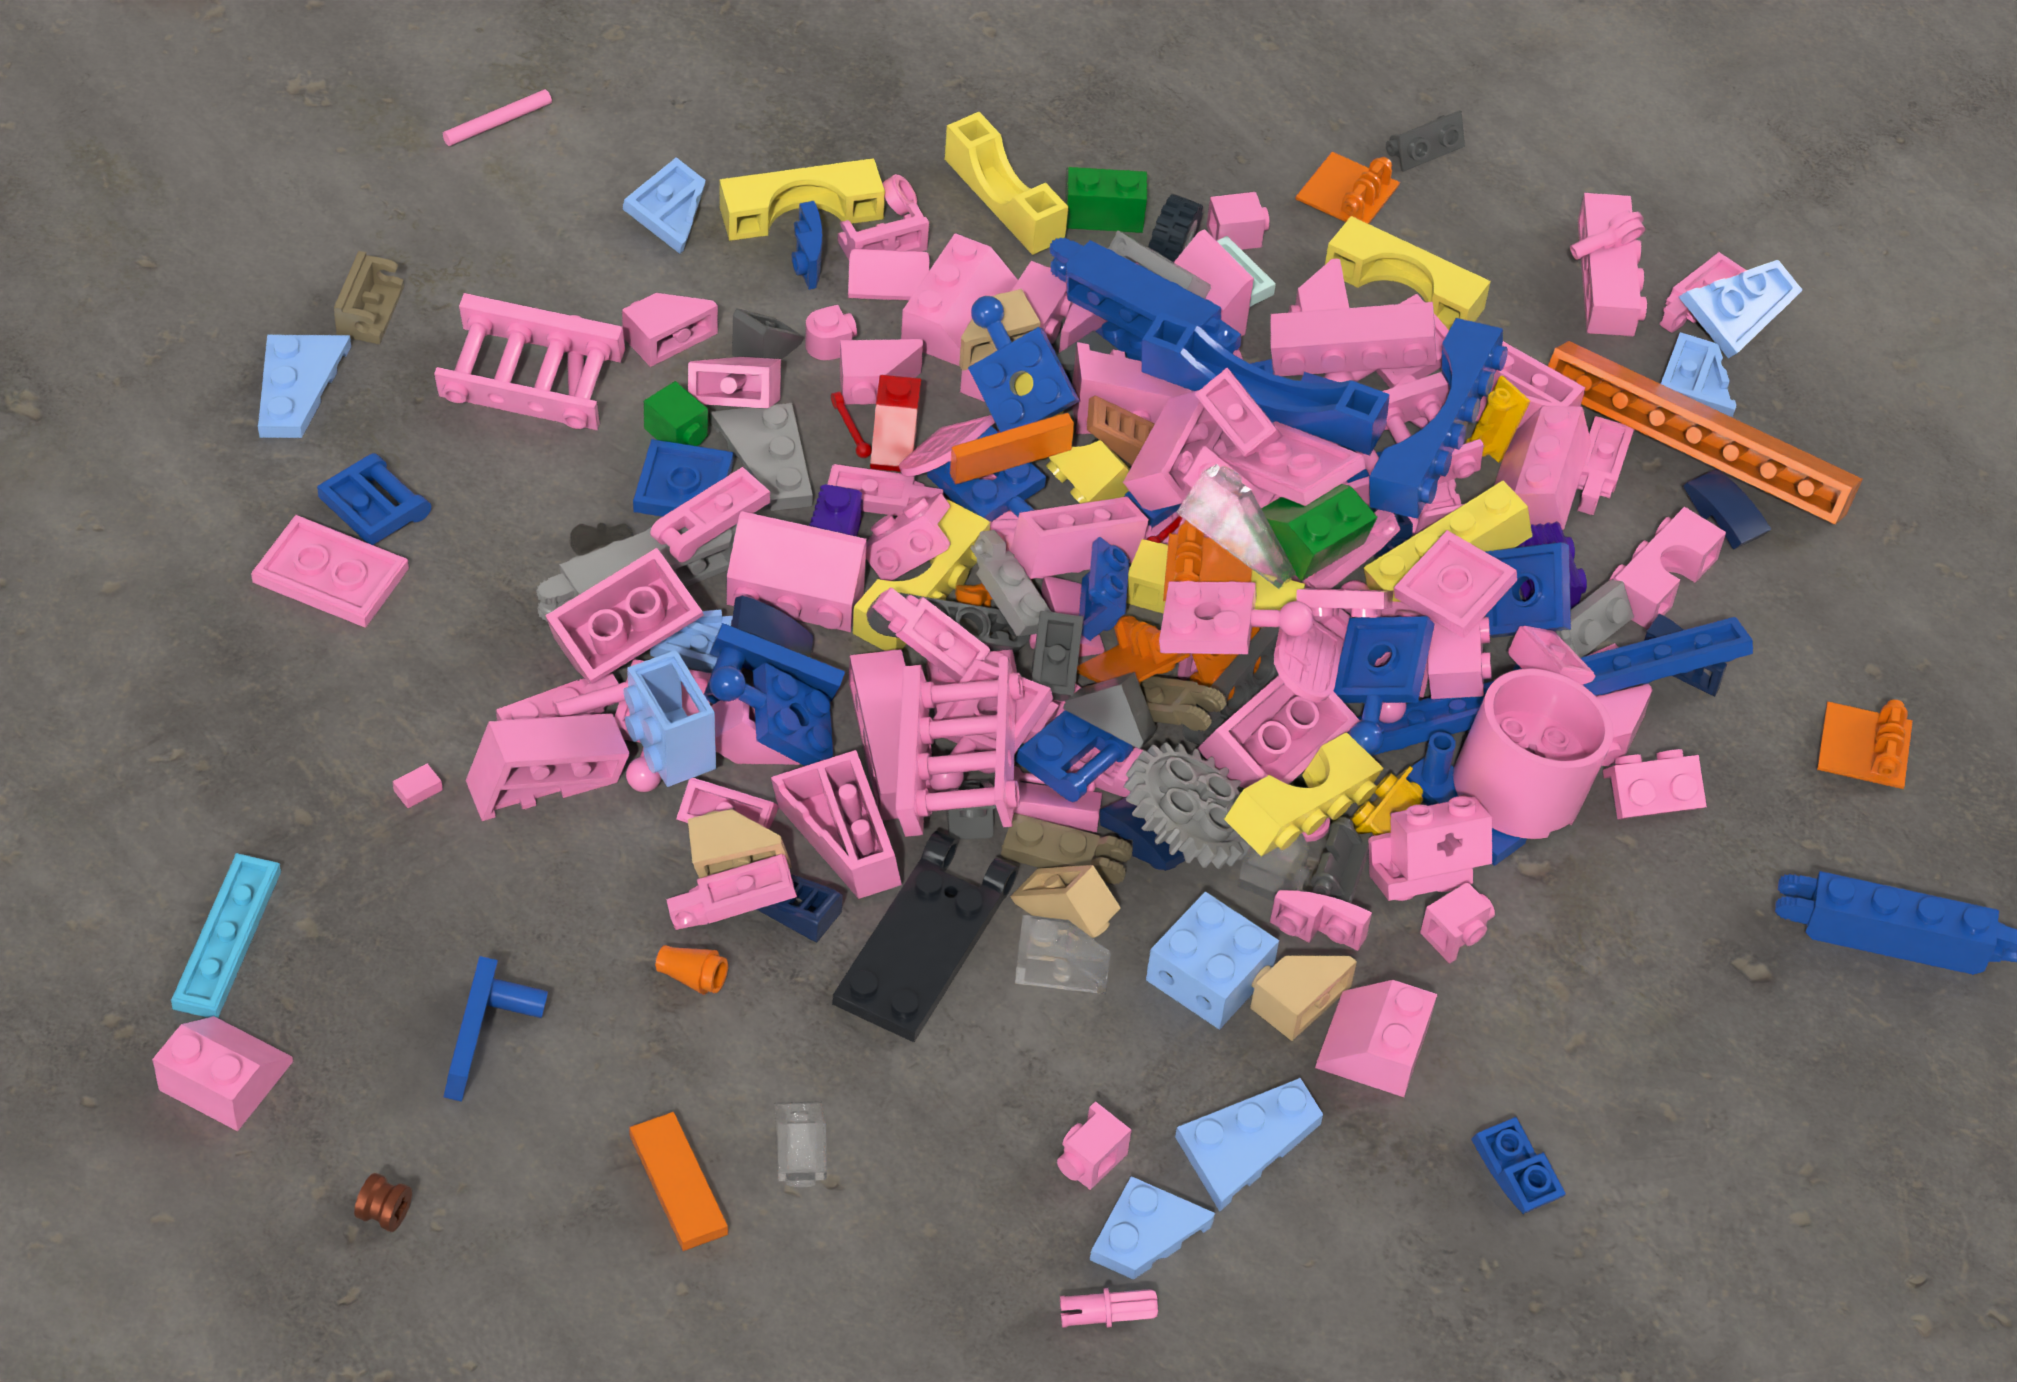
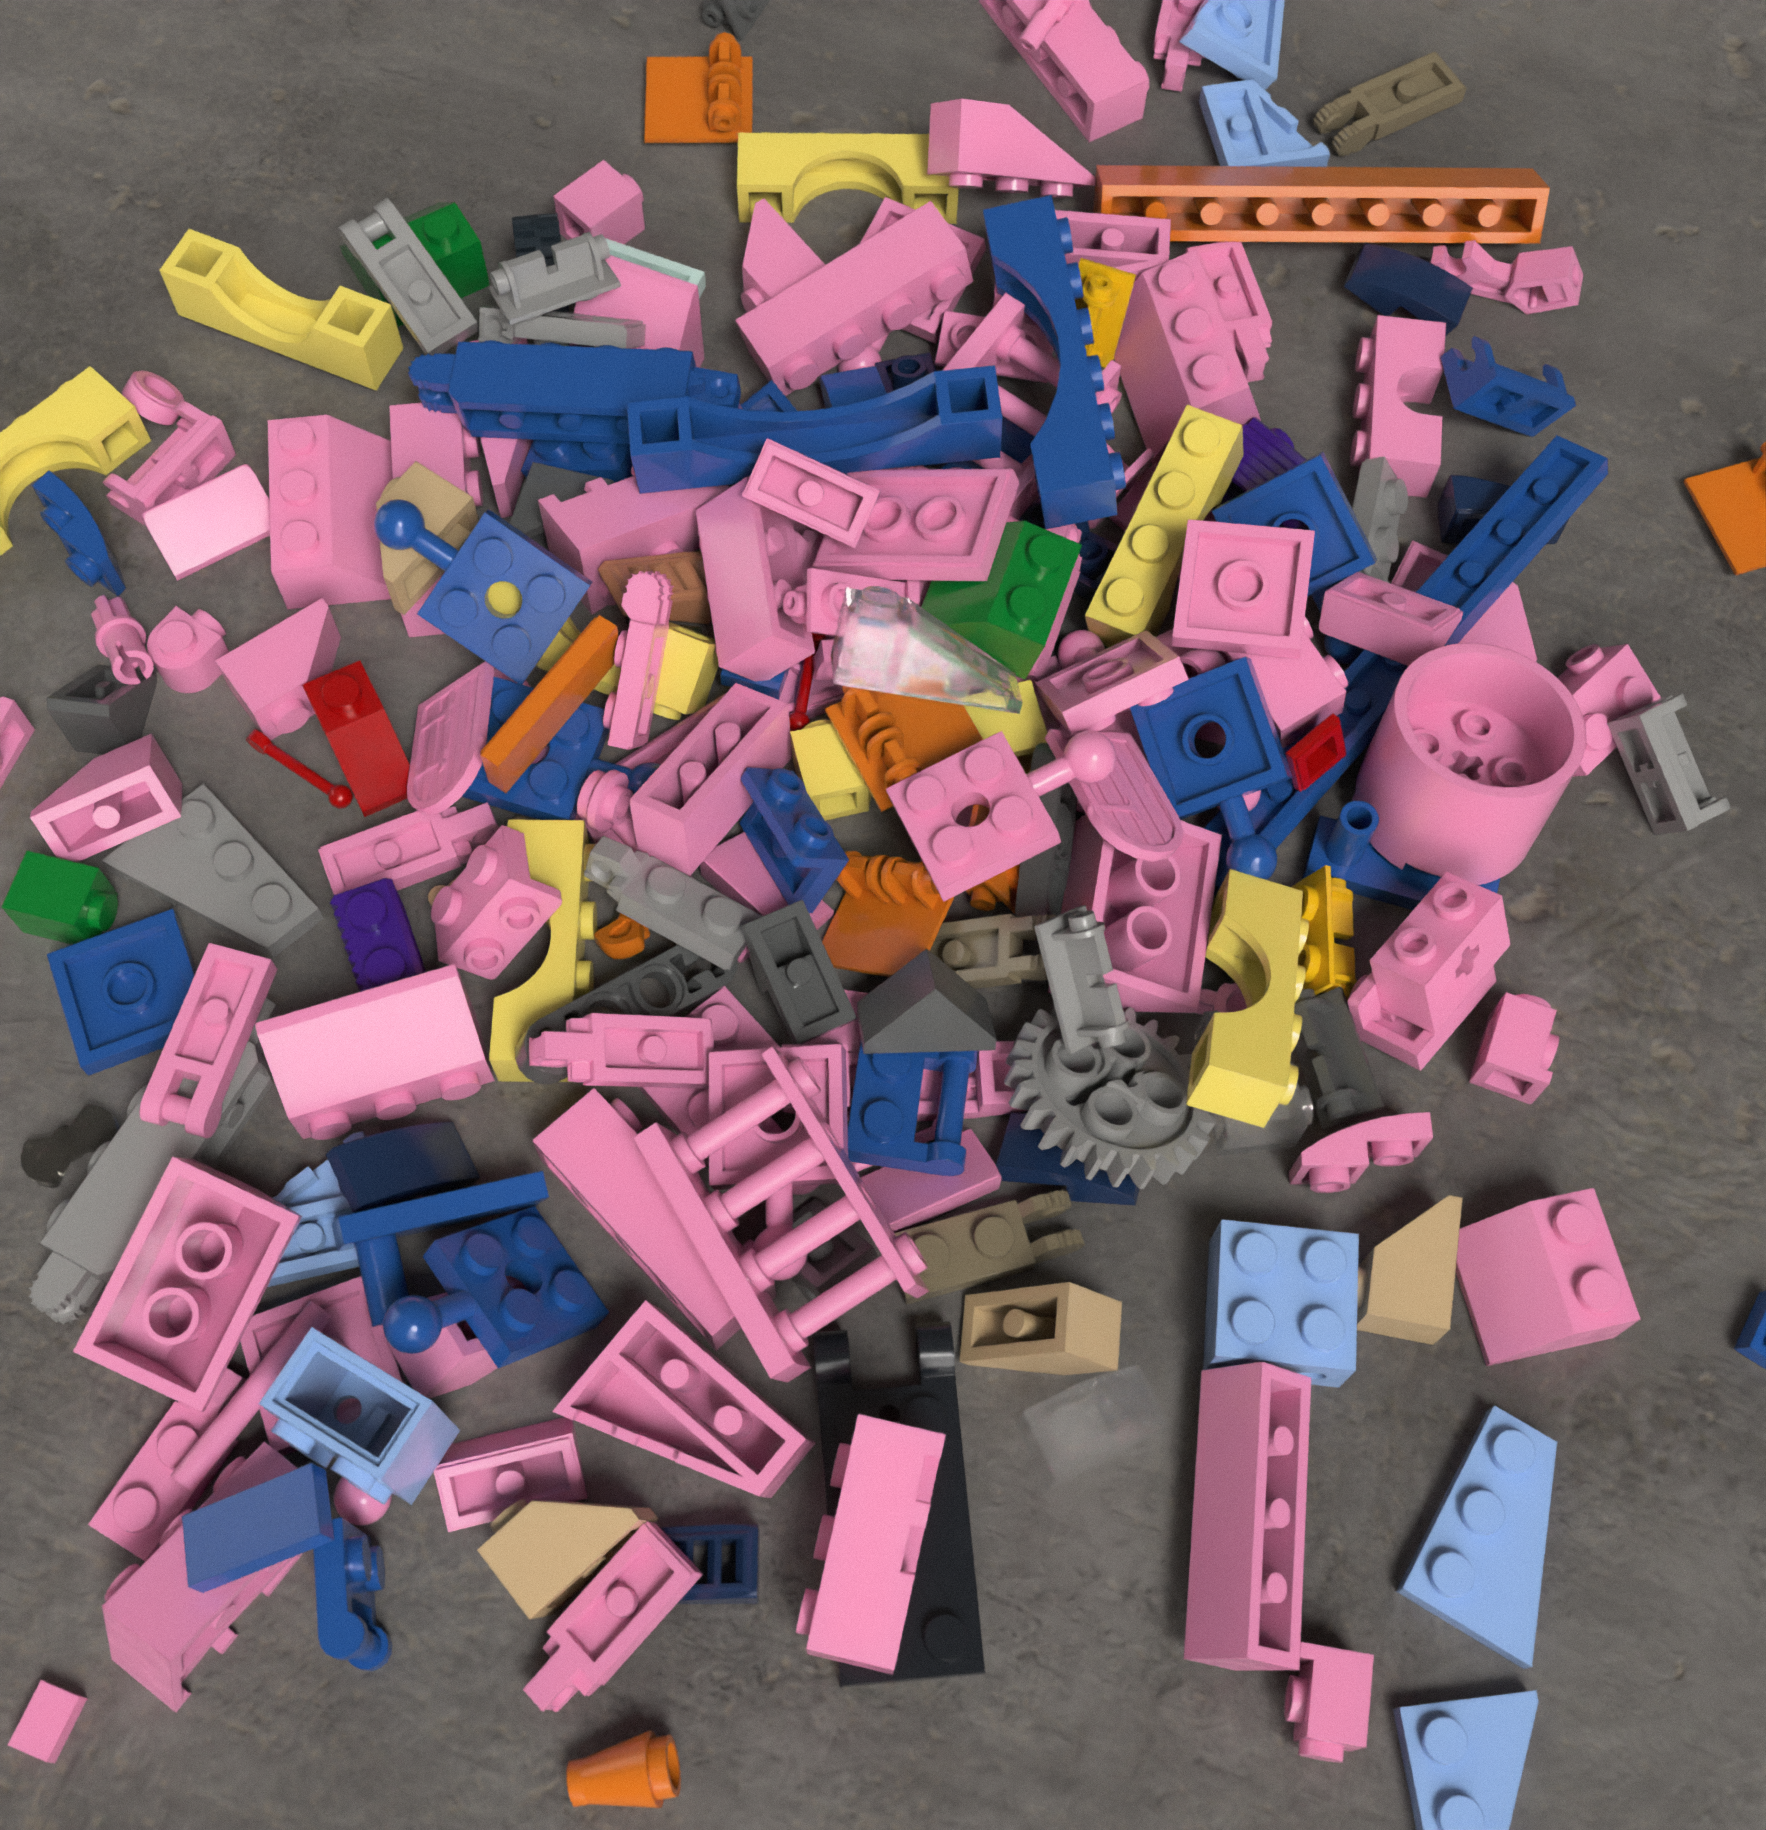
camera: 30 degrees left, 15 degrees up
(587, 729) = (257, 1528): none -> blue tile
(610, 800) = (346, 1584): none -> blue plate
(795, 307) = (121, 640): none -> bright pink axle
(899, 919) = (871, 1544): none -> bright pink wedge
(1005, 515) = (604, 799): none -> bright pink plate
(1078, 453) = (640, 657): none -> bright pink hinge
(1087, 196) = (409, 279): none -> light grey plate
(1112, 1038) = (1249, 1519): none -> bright pink brick
(1185, 236) = (529, 288): none -> light grey hinge
(1207, 727) = (1075, 964): none -> light grey hinge
(1444, 700) = (1316, 752): none -> red slope
(1502, 293) = (997, 144): none -> bright pink slope
(1674, 831) = (1664, 767): none -> light grey hinge
(1734, 589) = (1504, 394): none -> blue hinge
(1804, 402) = (1390, 103): none -> dark tan hinge
(1815, 545) = (1532, 282): none -> bright pink piece

